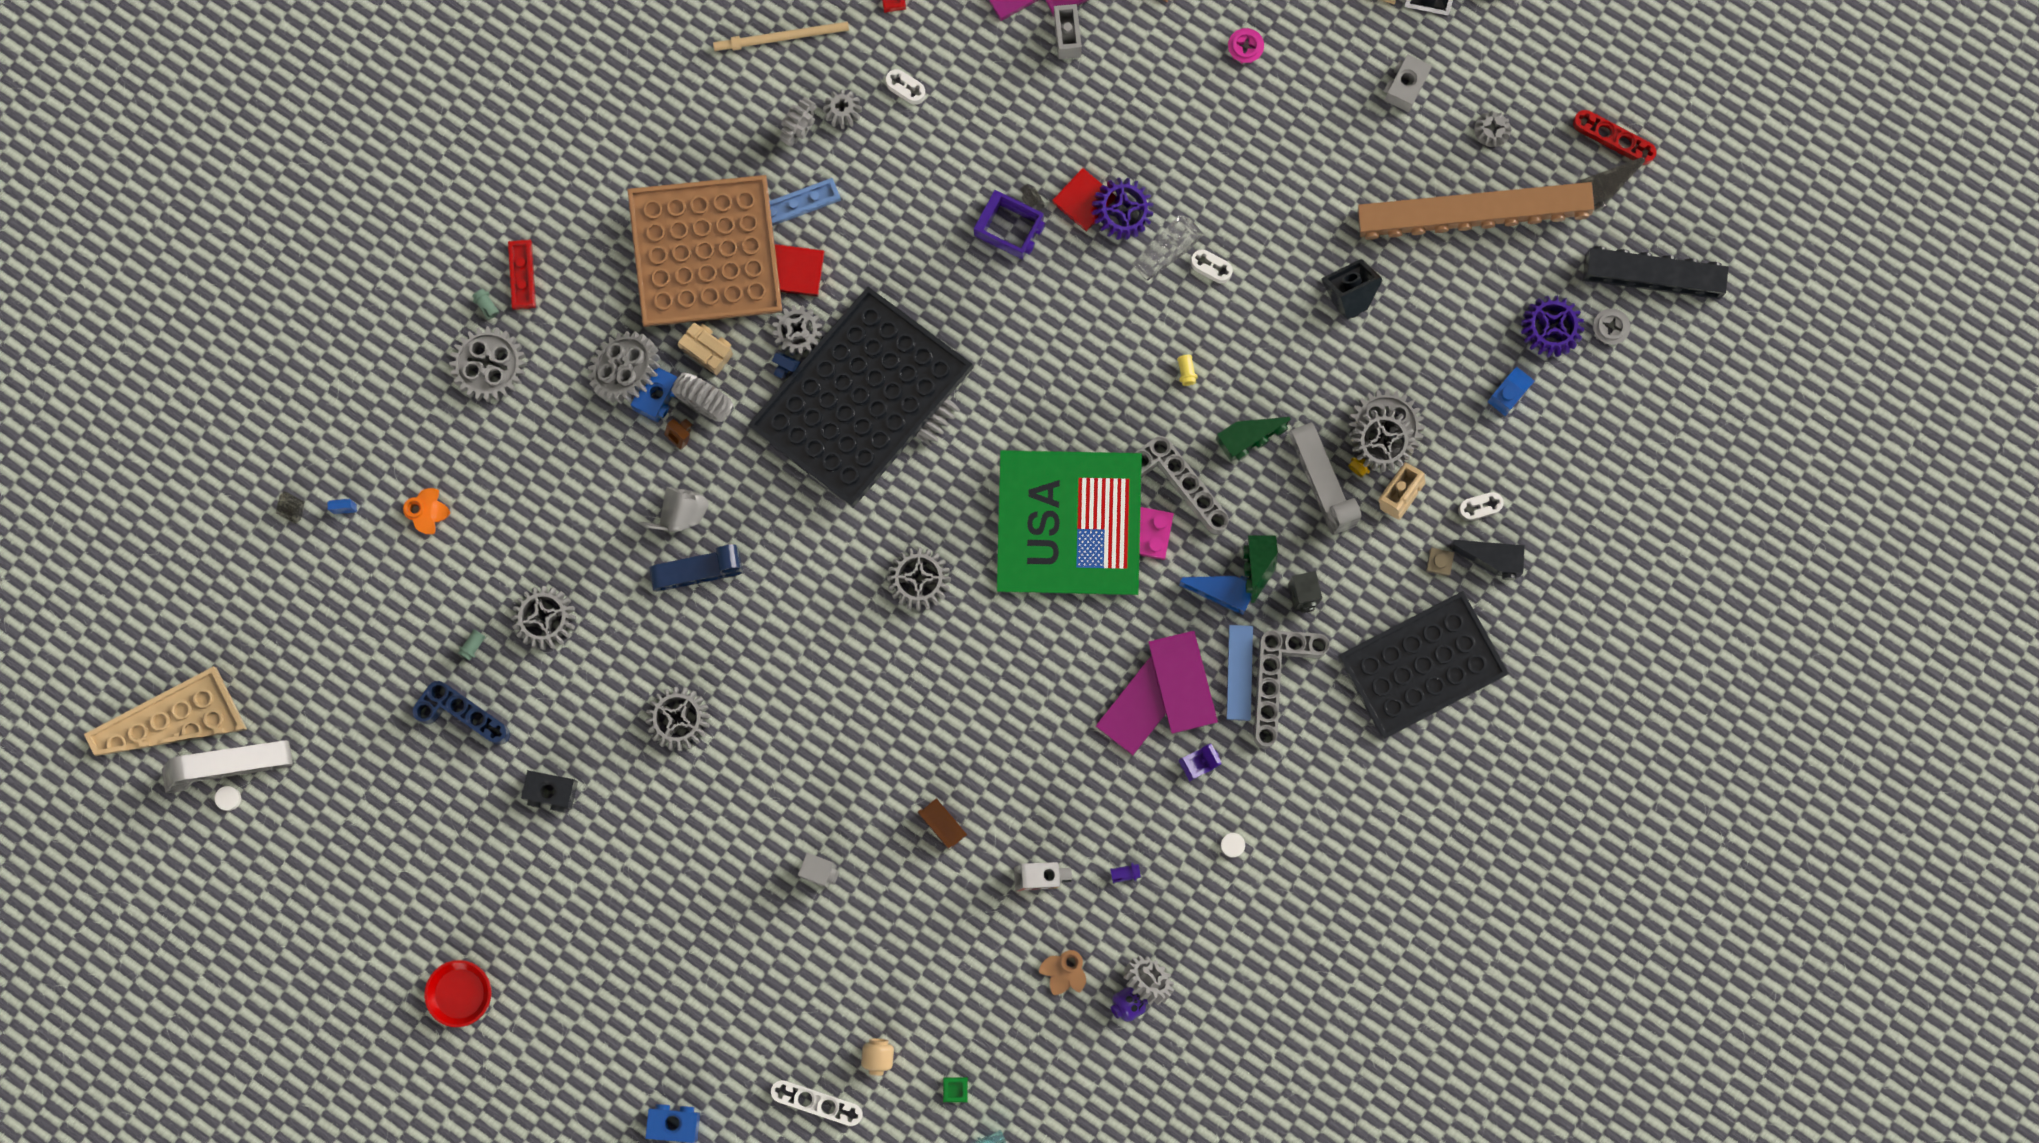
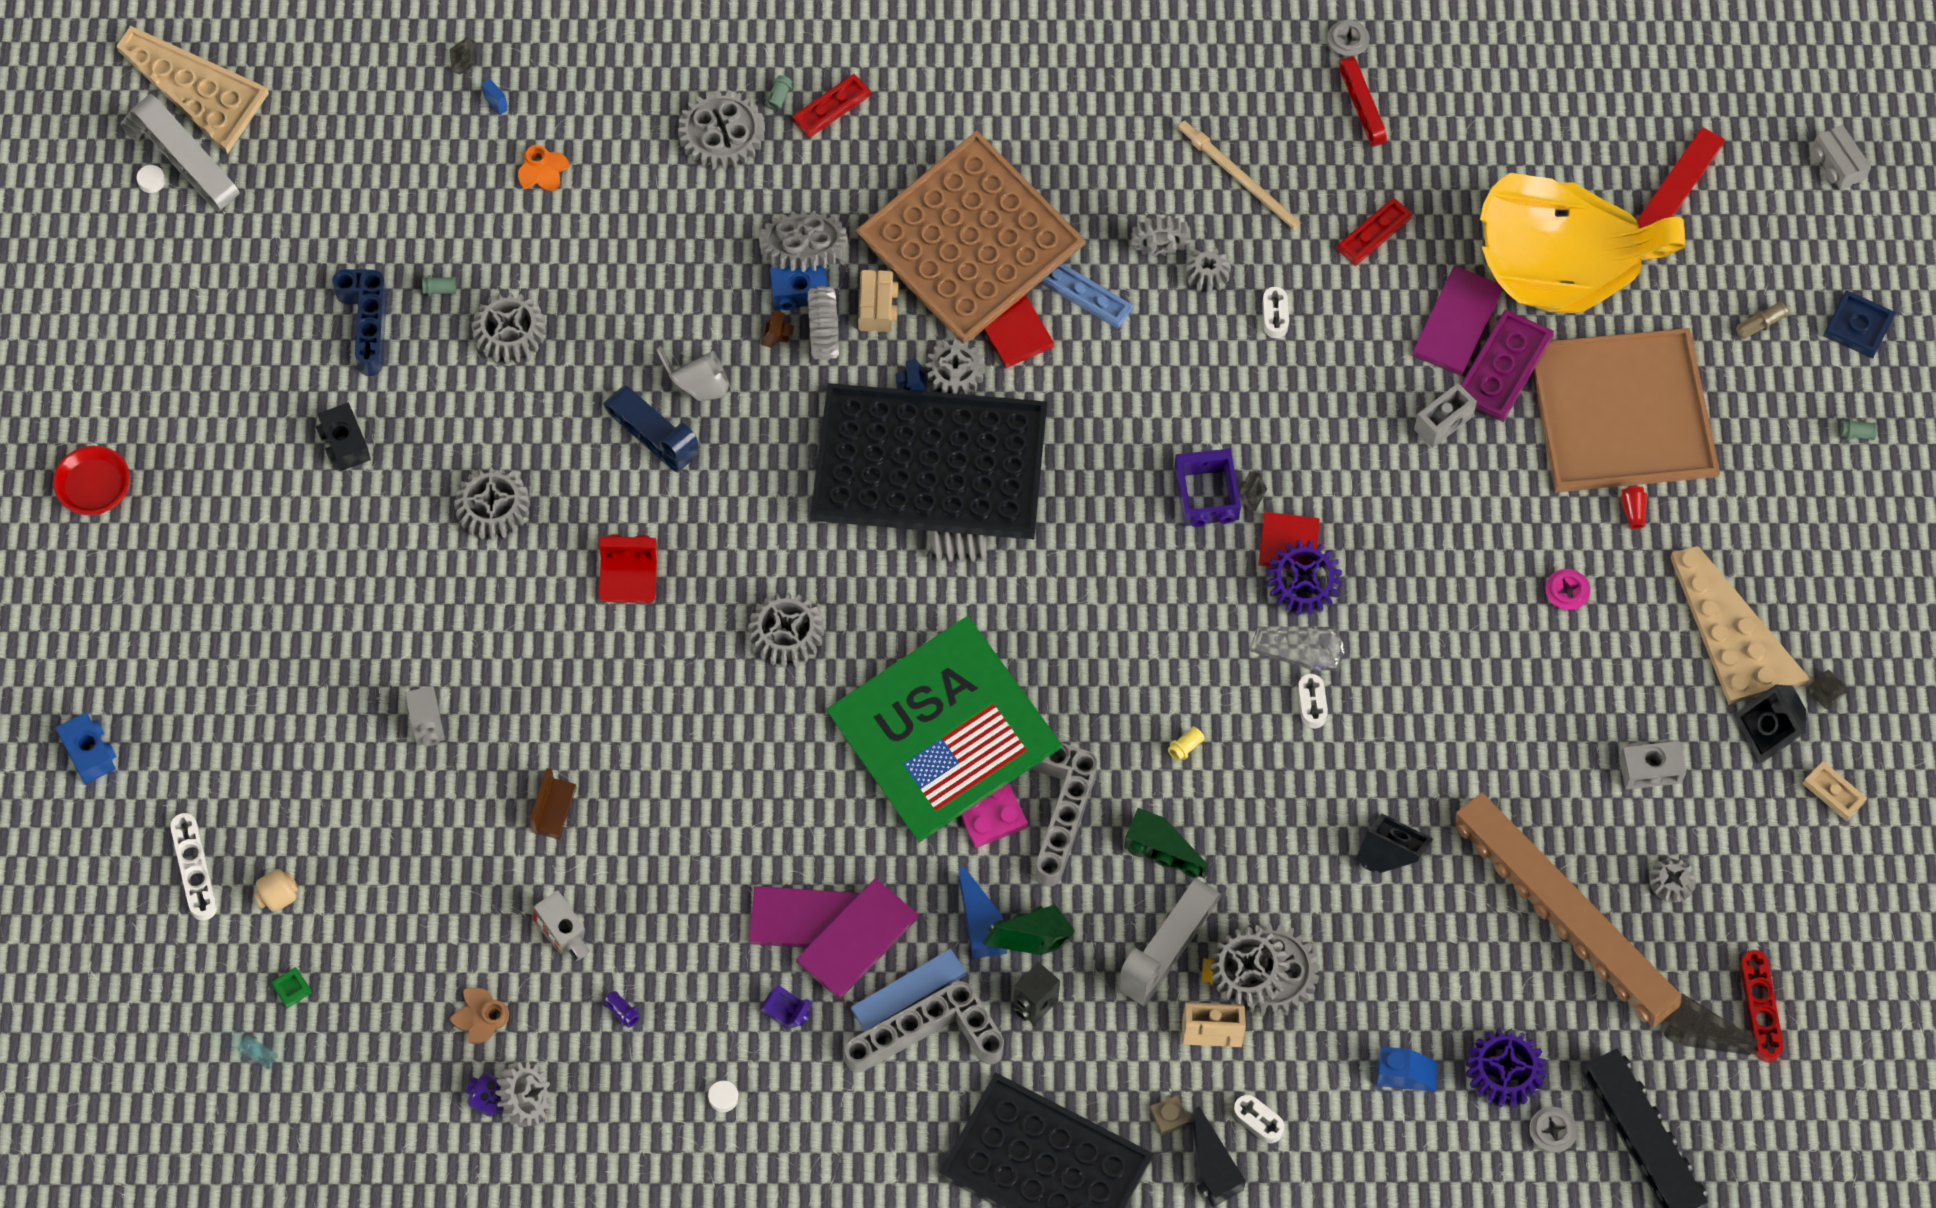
camera: 55 degrees right, 15 degrees down
(797, 657) = (628, 569): none -> red bracket

